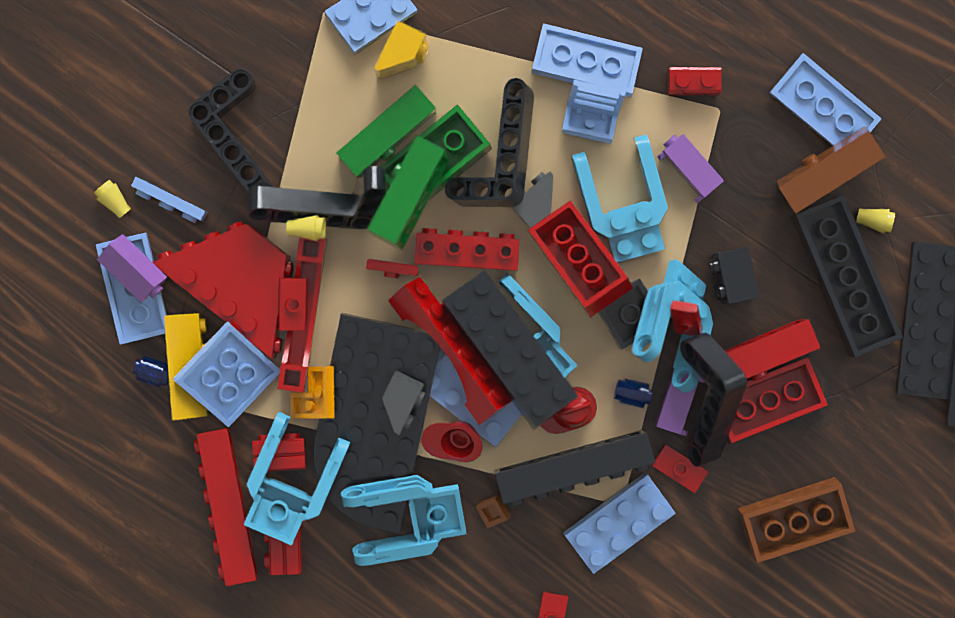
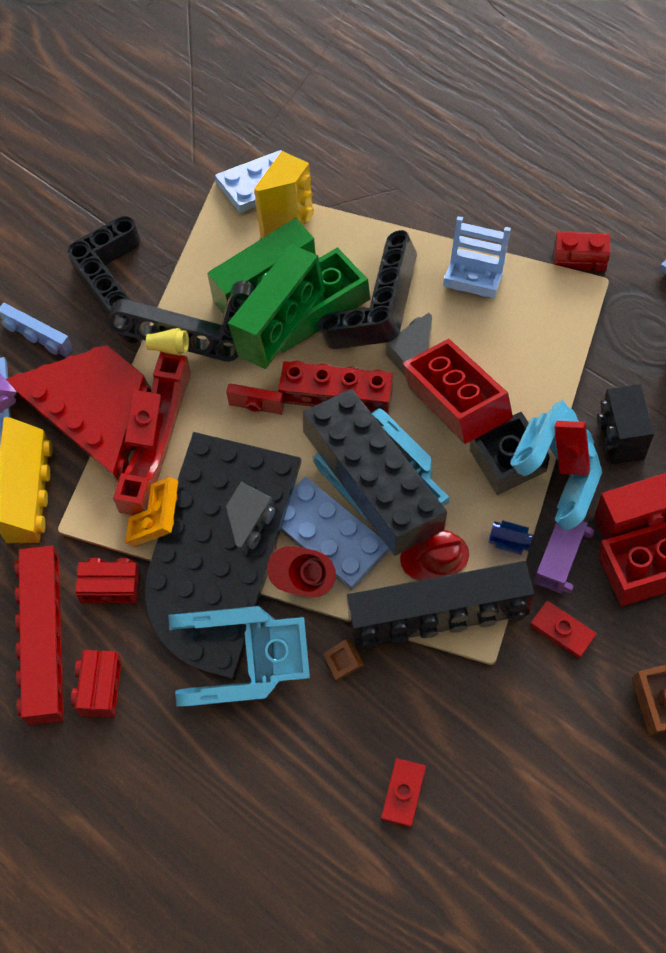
camera: 10 degrees right, 25 degrees down
(227, 374) = (61, 485): light blue plate -> none
(278, 506) = (98, 627): medium azure plate -> none
(482, 390) = (341, 518): red arch -> none
(586, 58) = (440, 219): light blue plate -> none
(619, 522) = (490, 683): light blue plate -> none
(633, 228) = (514, 368): medium azure plate -> none
(691, 166) = (579, 321): medium lavender brick -> none
(722, 398) = (609, 540): black beam -> none

